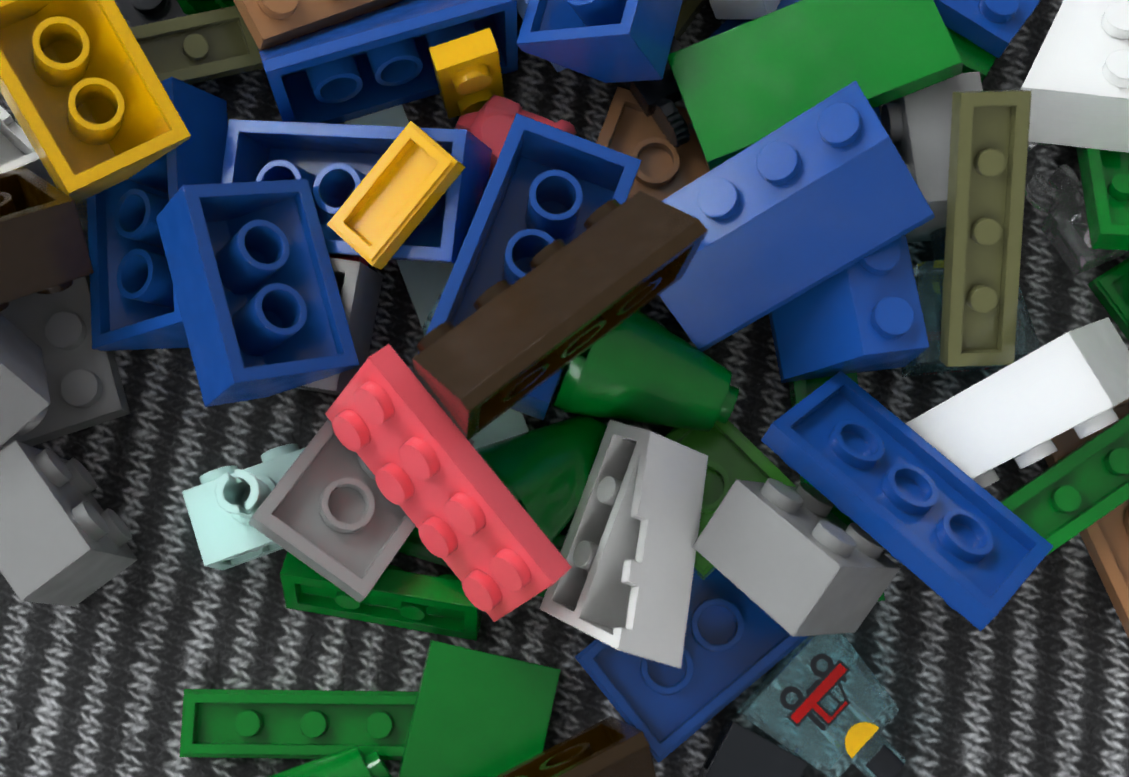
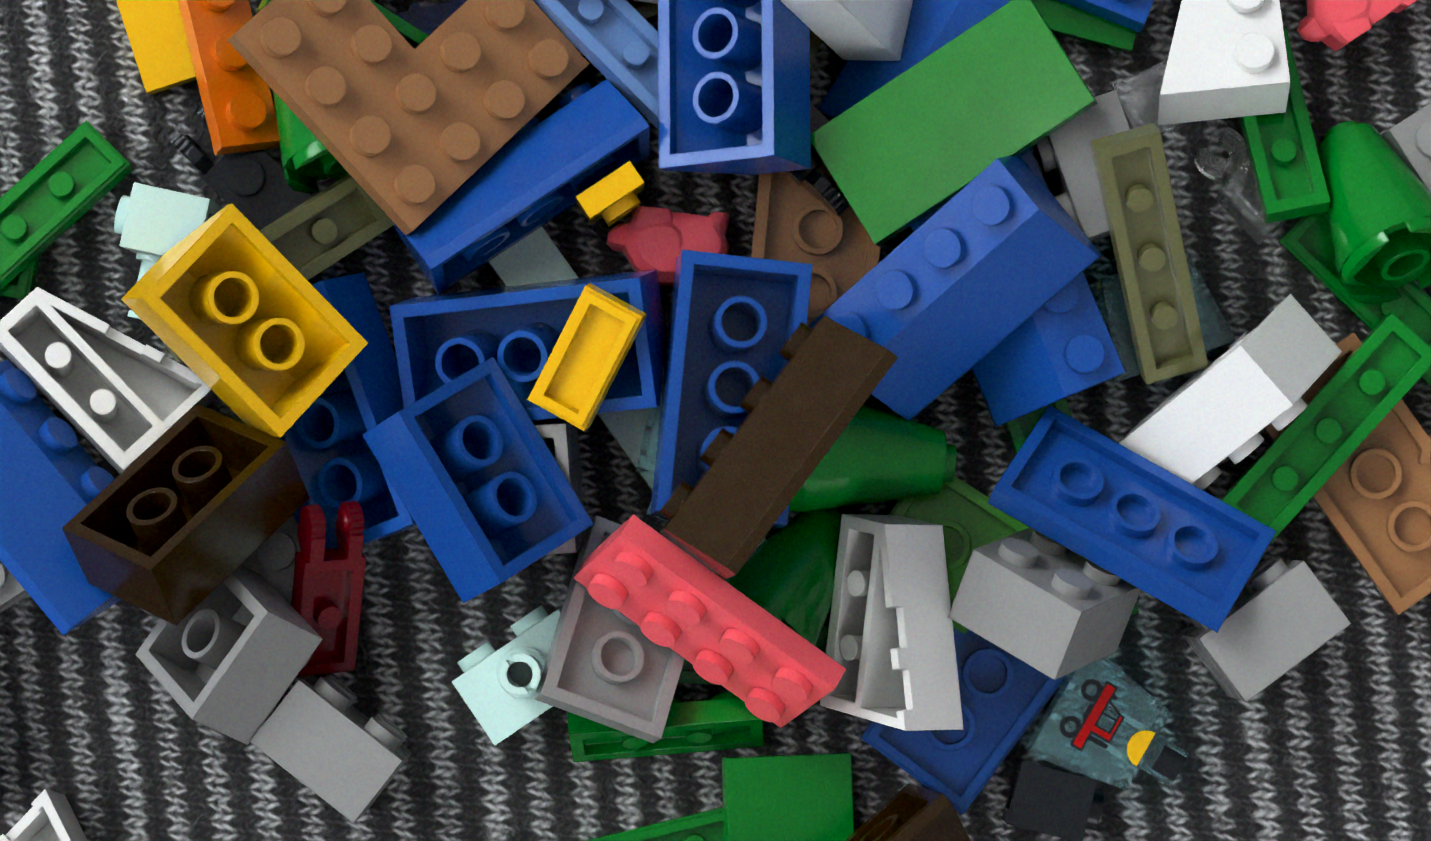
camera: 25 degrees left, 10 degrees up
(85, 375) = (330, 586): none -> dark red hinge
(1029, 649) = (1270, 628): none -> light grey brick

